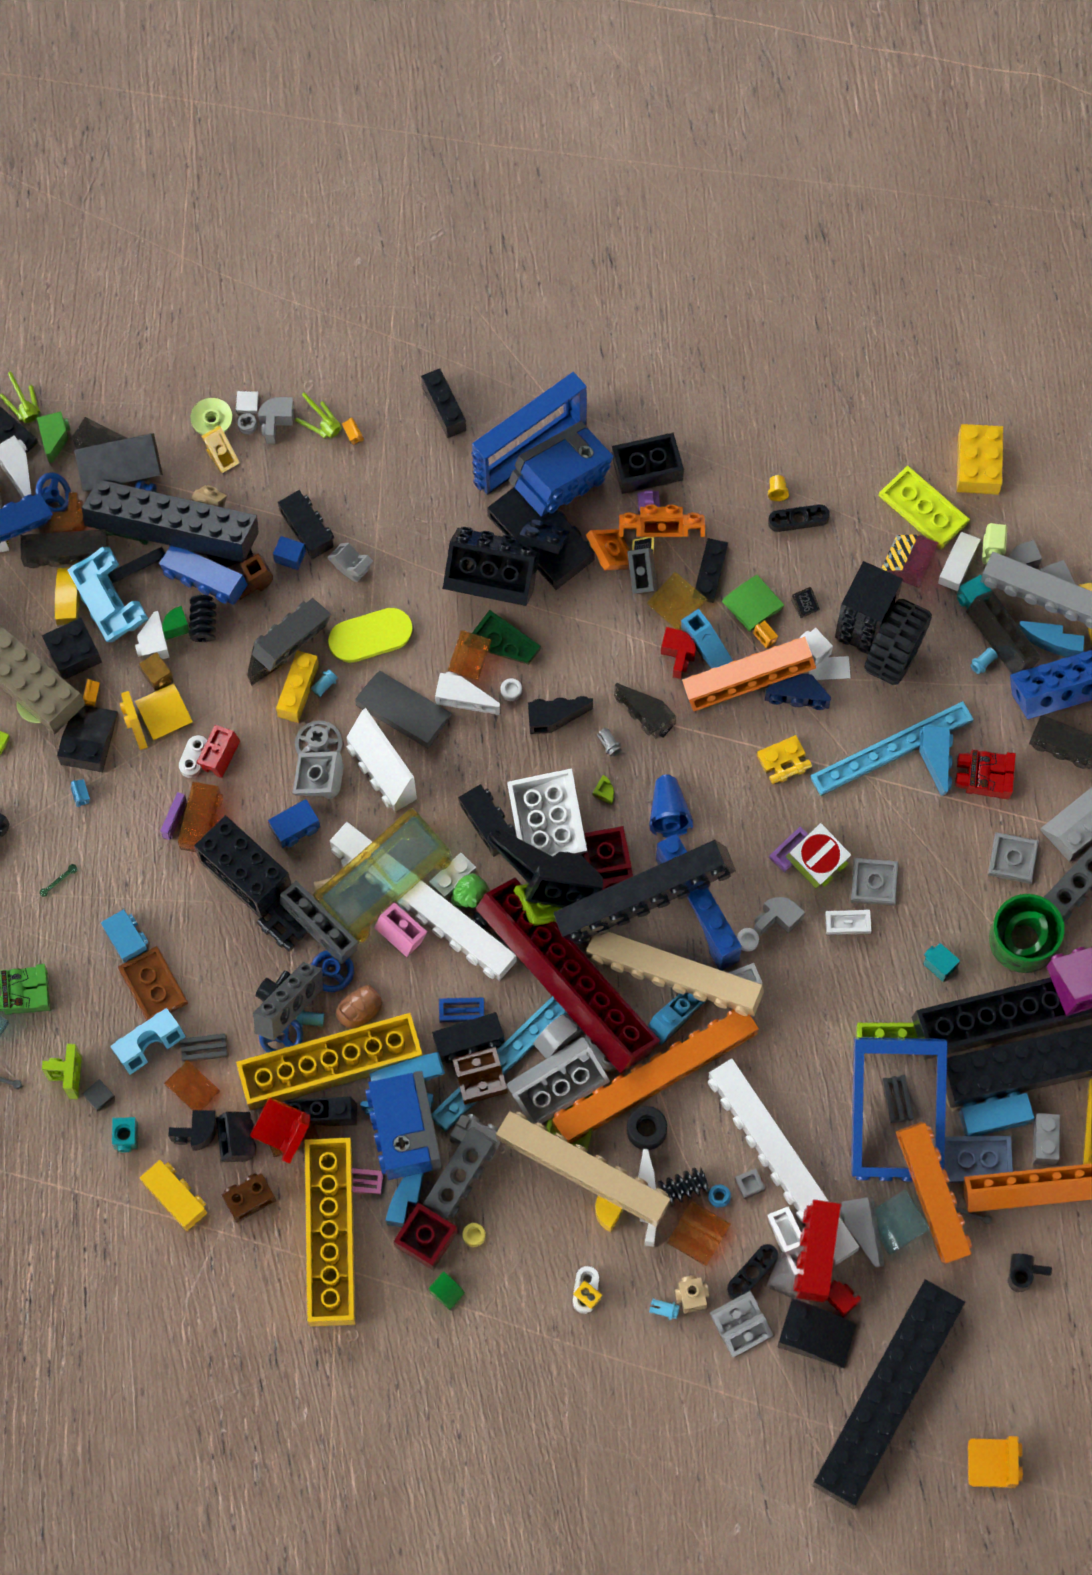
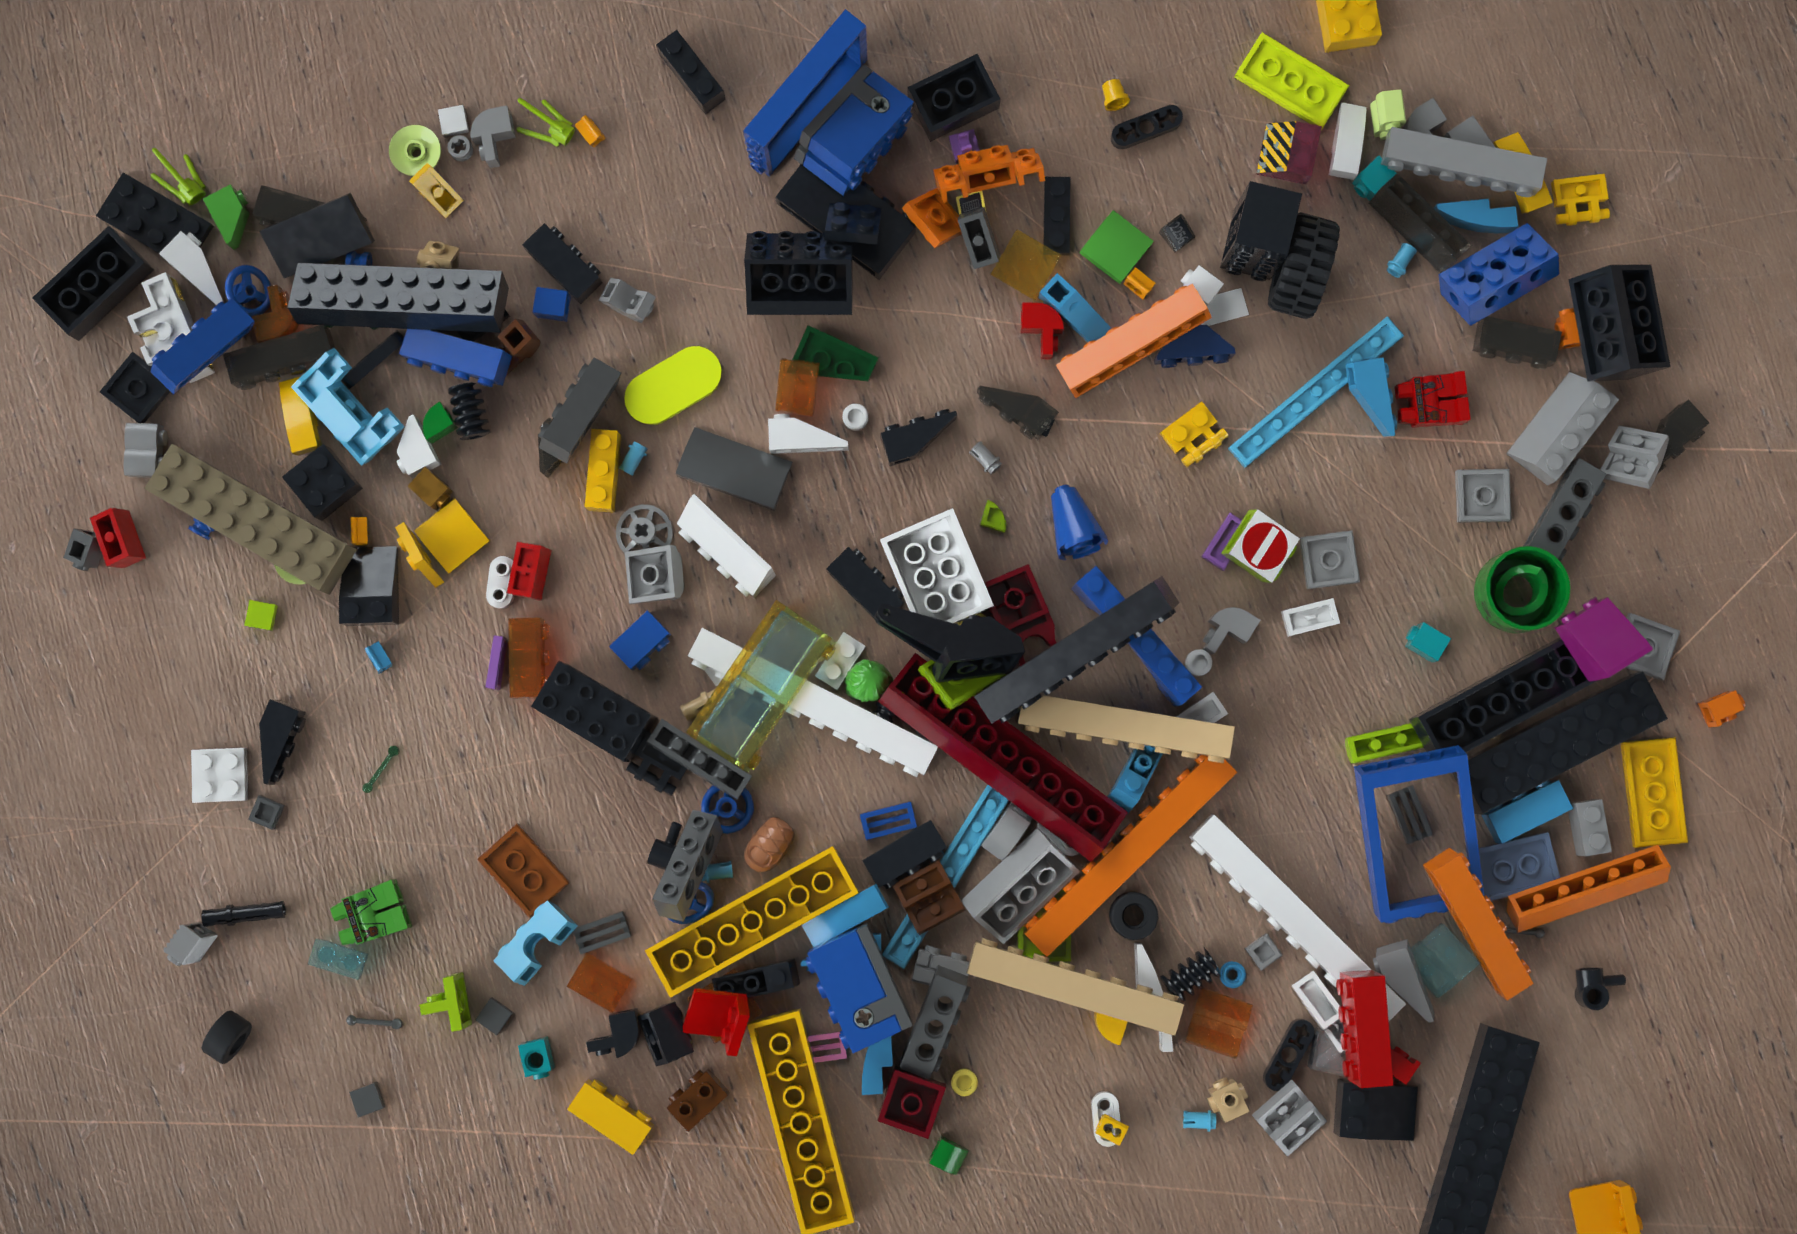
camera: 15 degrees left, 15 degrees up
(124, 935) = (476, 821): dark azure brick -> none
(400, 929) = (796, 744): bright pink brick -> none

